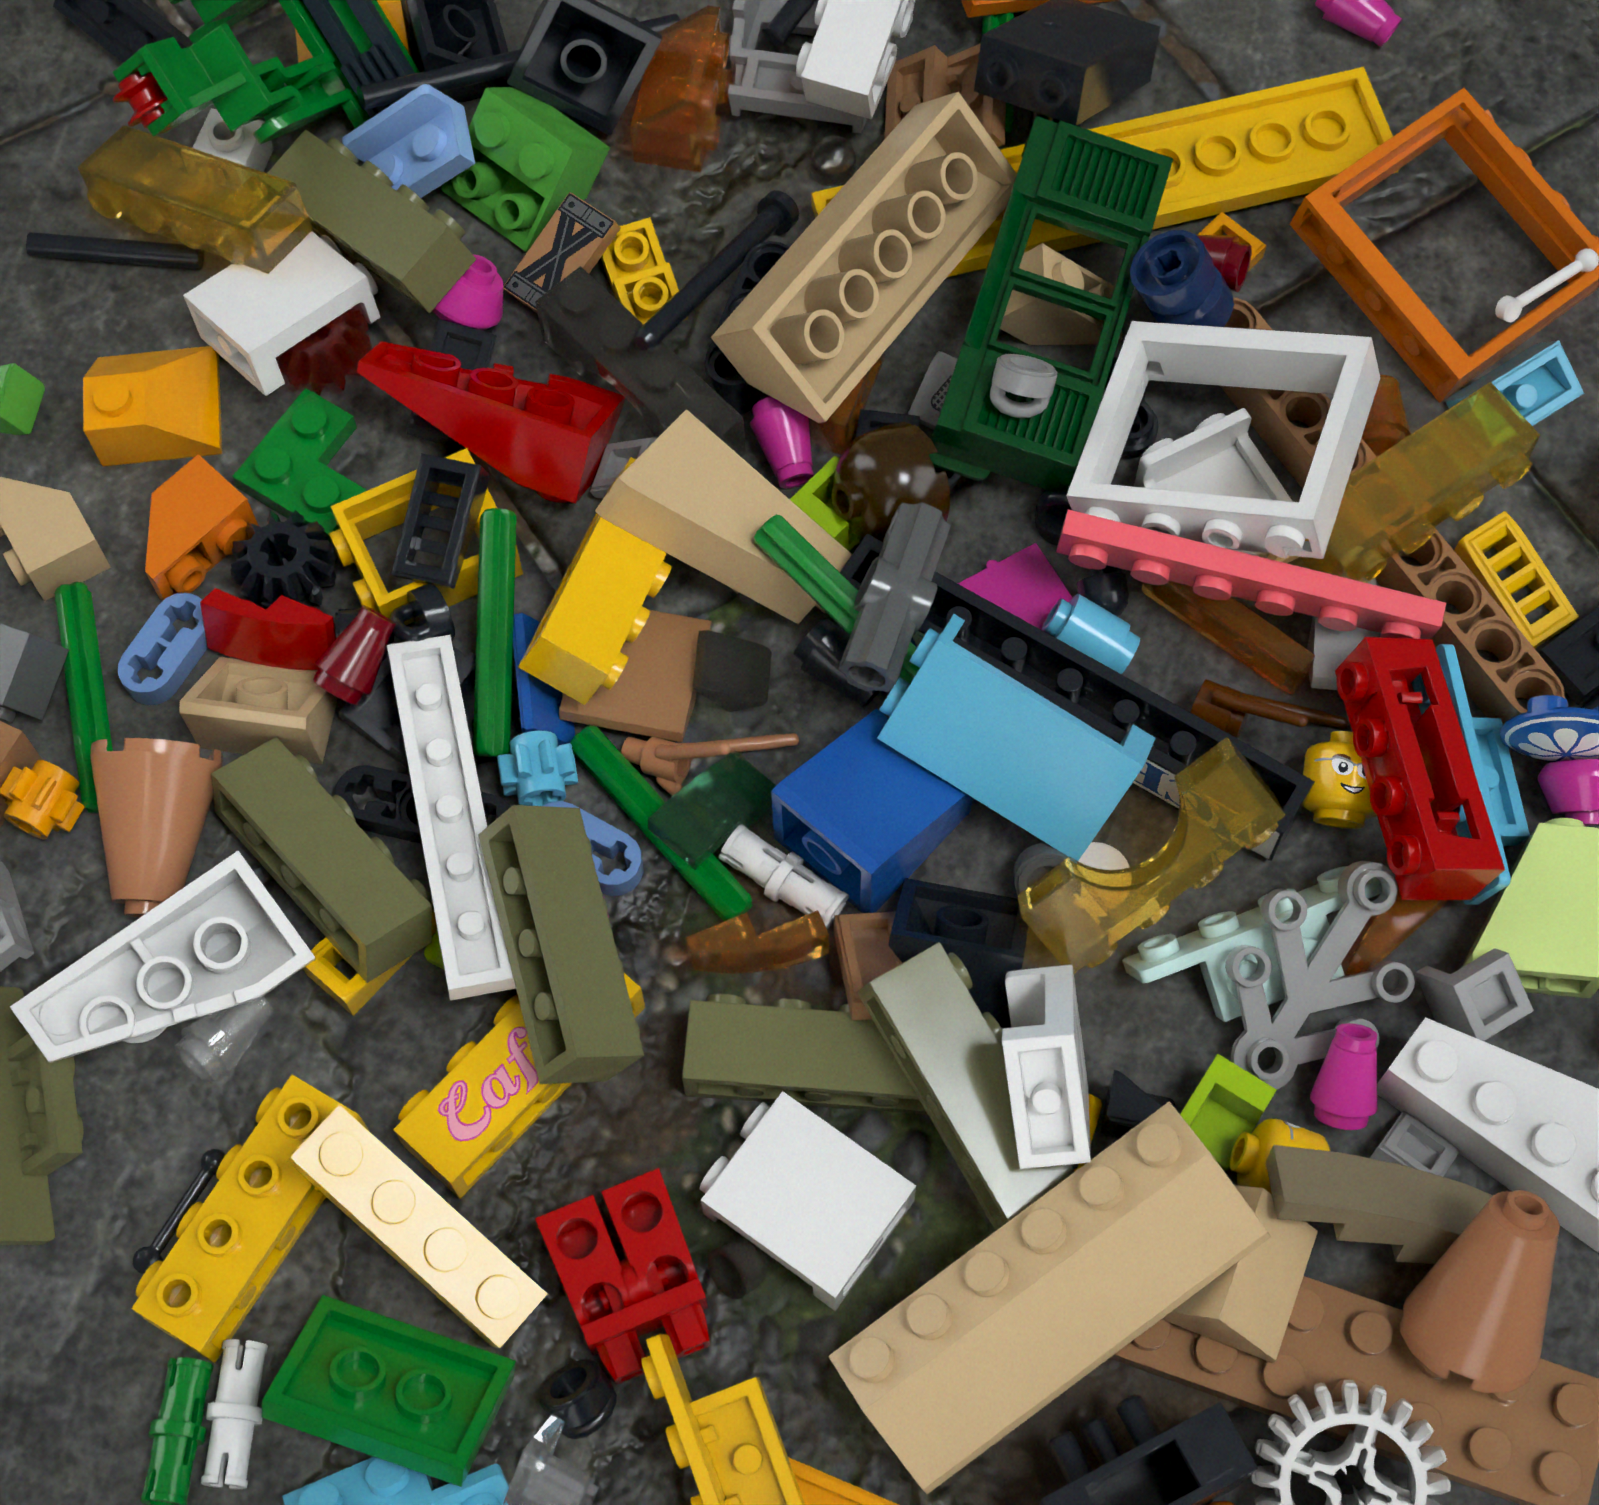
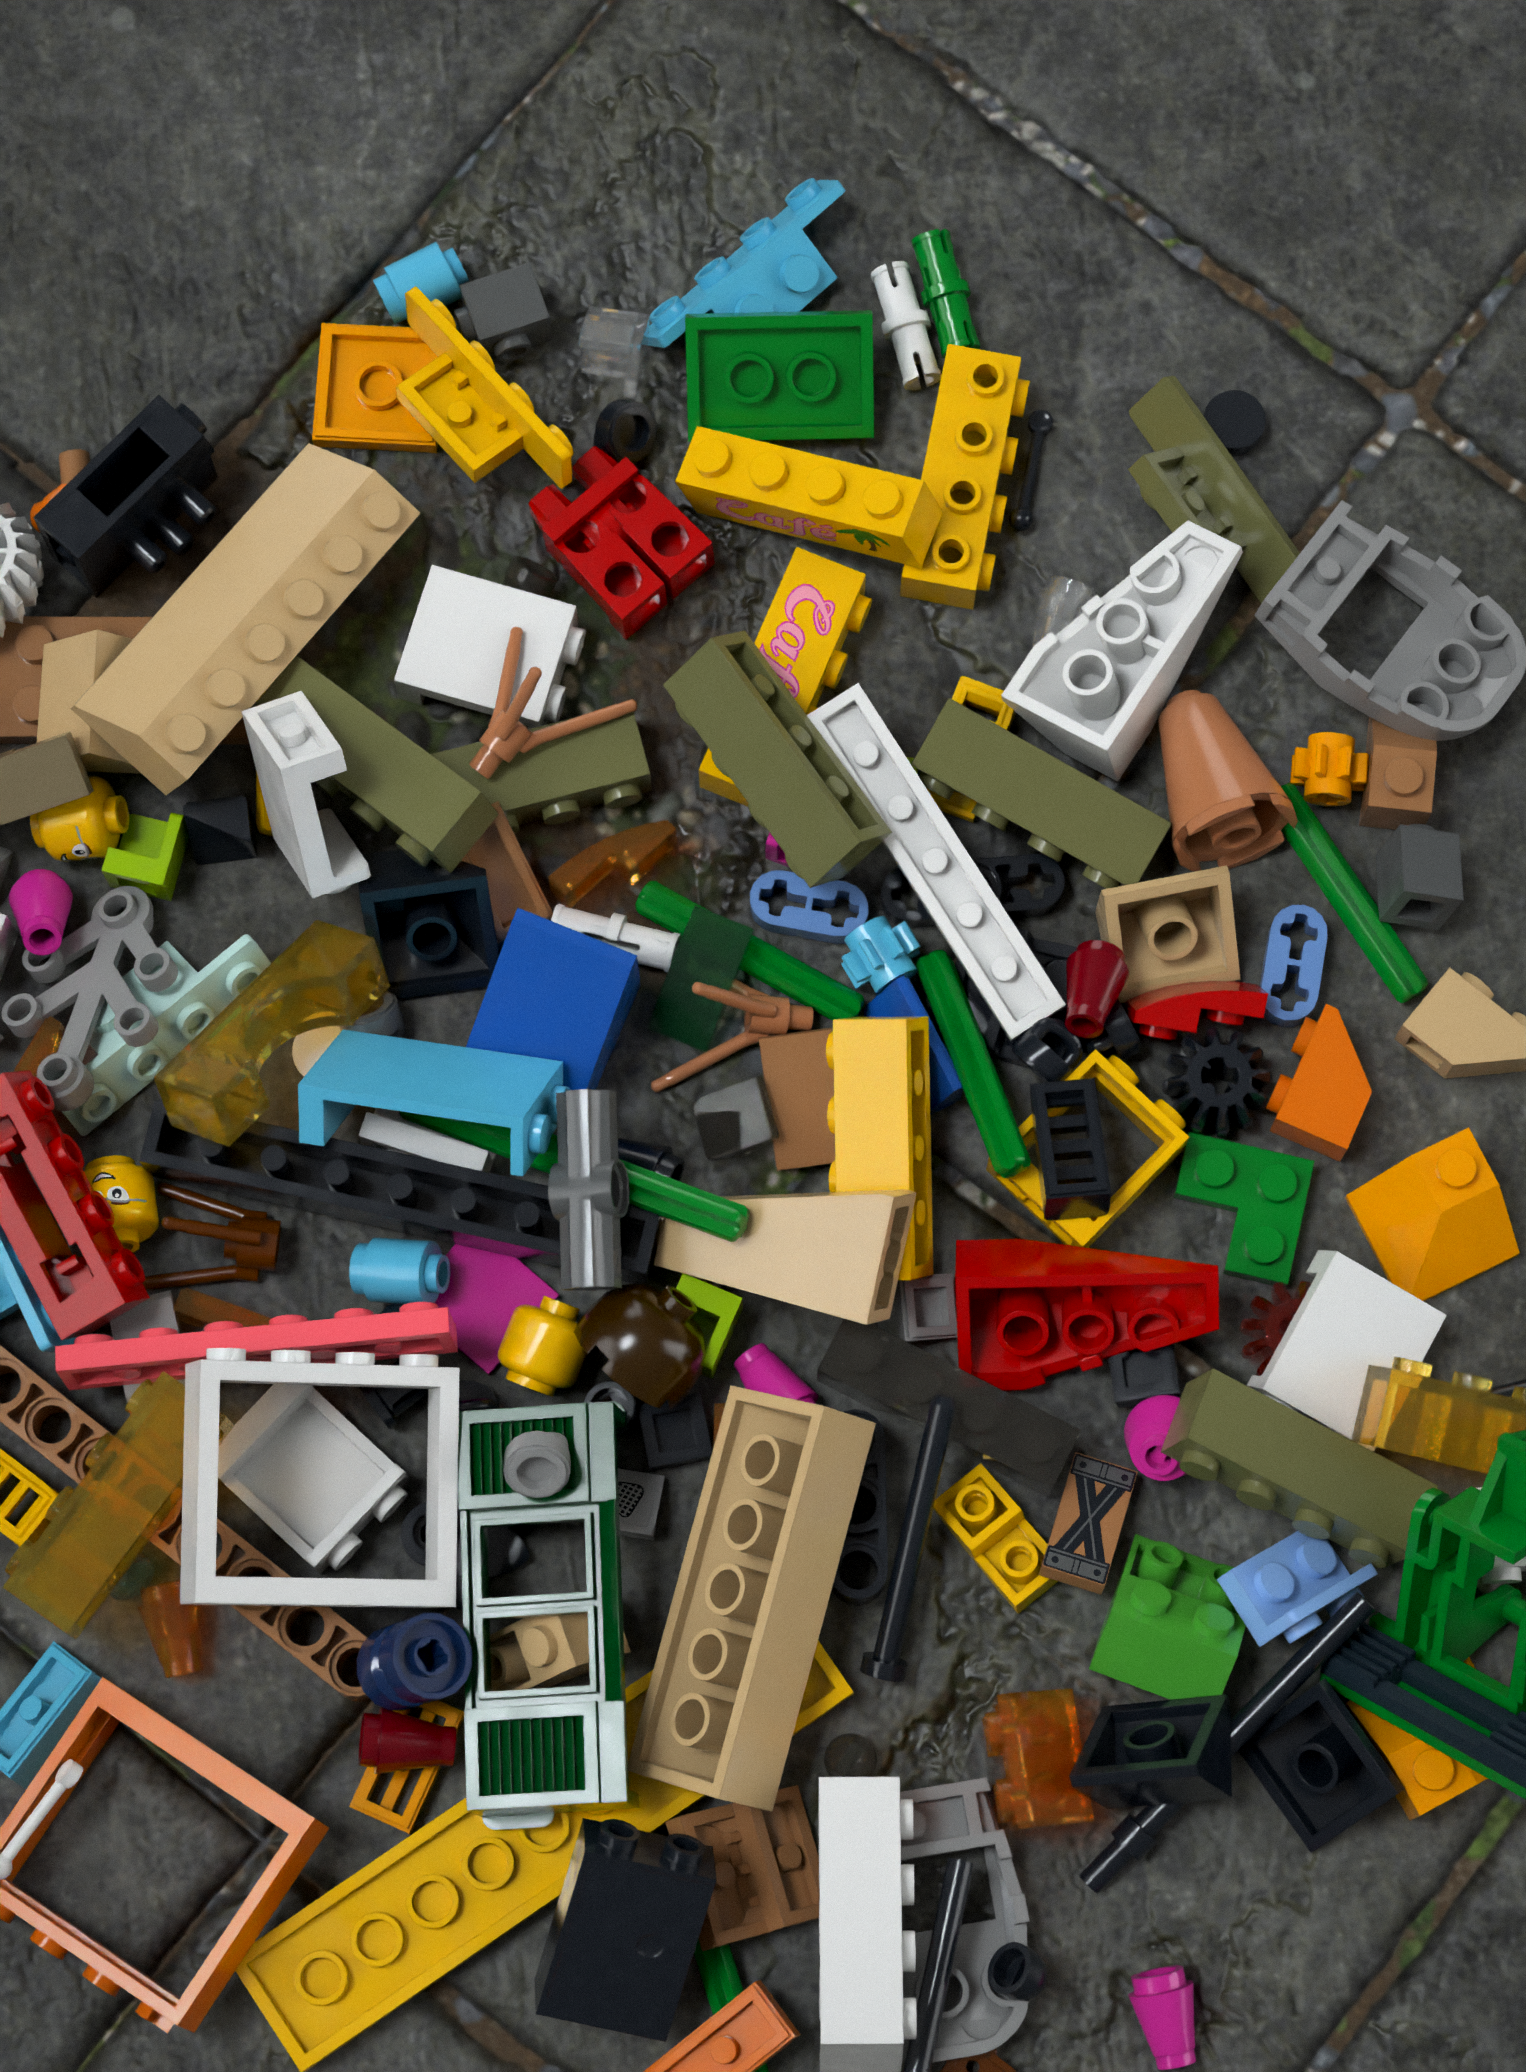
camera: 160 degrees right, 10 degrees up
(816, 1076) = (508, 736): none -> nougat plant
(982, 530) = (542, 1346): none -> yellow head

